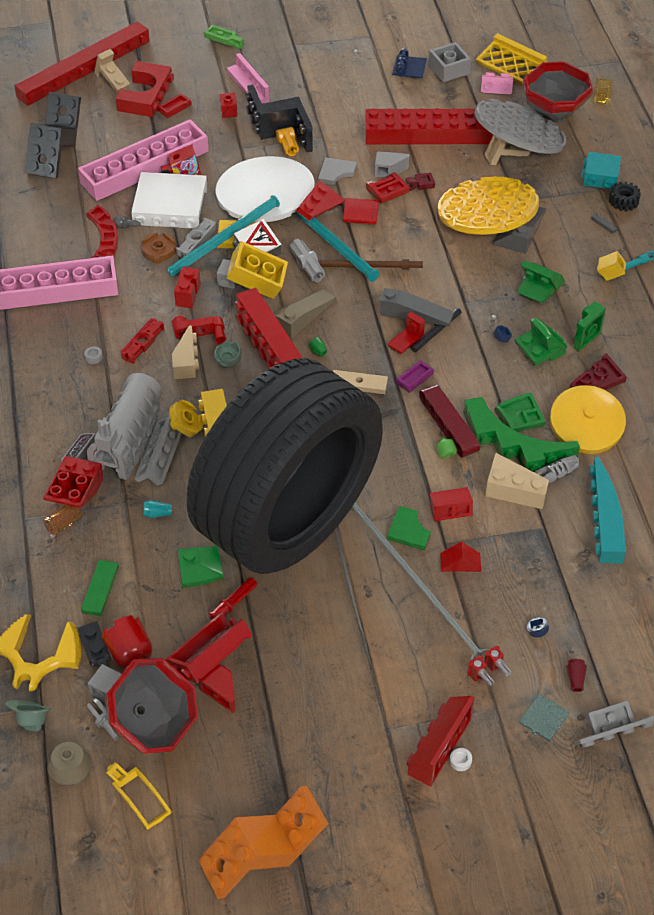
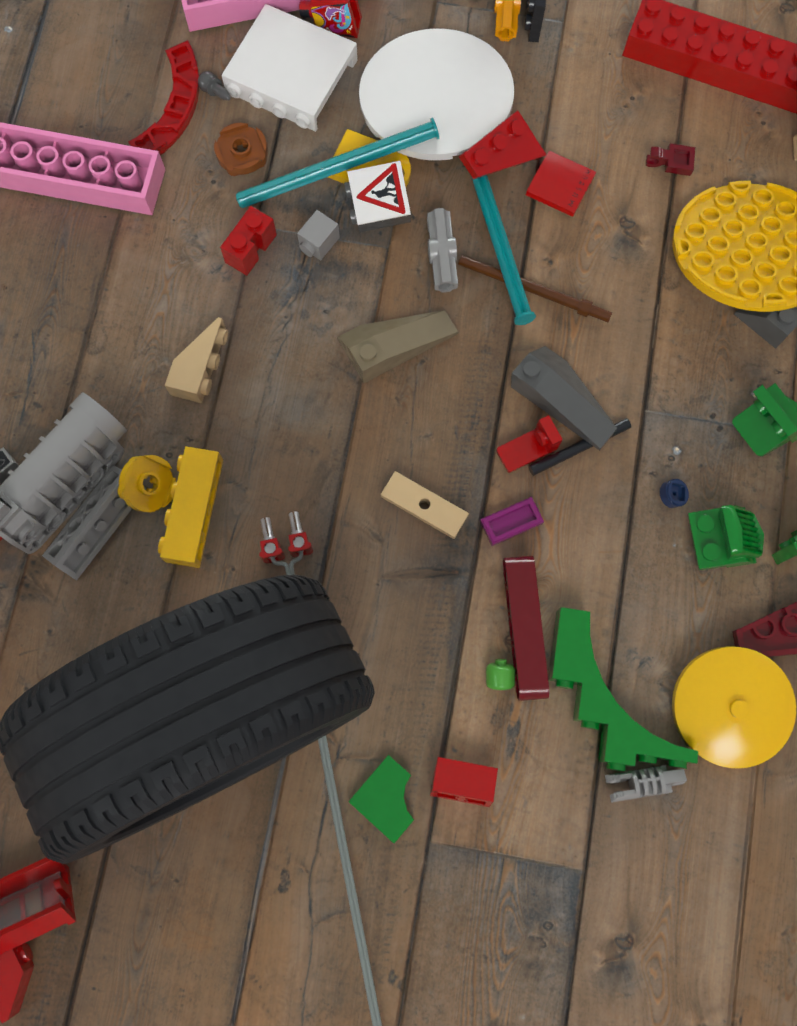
camera: 20 degrees right, 25 degrees up
(93, 355) = (75, 312): light grey tile -> none
(134, 347) = (166, 299): red piece -> none
(156, 509) = (47, 625): teal cone -> none
(203, 231) = (316, 140): light grey piece -> none
(207, 326) = (240, 319): red beam -> none
(228, 354) = (256, 385): sand green hair -> none
(257, 269) = (355, 250): yellow brick -> none
(264, 329) = (323, 410): red brick -> none
(318, 347) = (393, 417): green hose -> none
(336, 169) = (556, 90): light grey tile -> none
(388, 187) = (619, 159): red plate -> none
(390, 162) = (641, 109): light grey slope -> none
(460, 559) = (435, 887): red slope -> none
(515, 483) = (573, 786): tan wedge -> none
(521, 413) = (636, 655): green plate -> none
(607, 516) = (684, 899): teal slope -> none

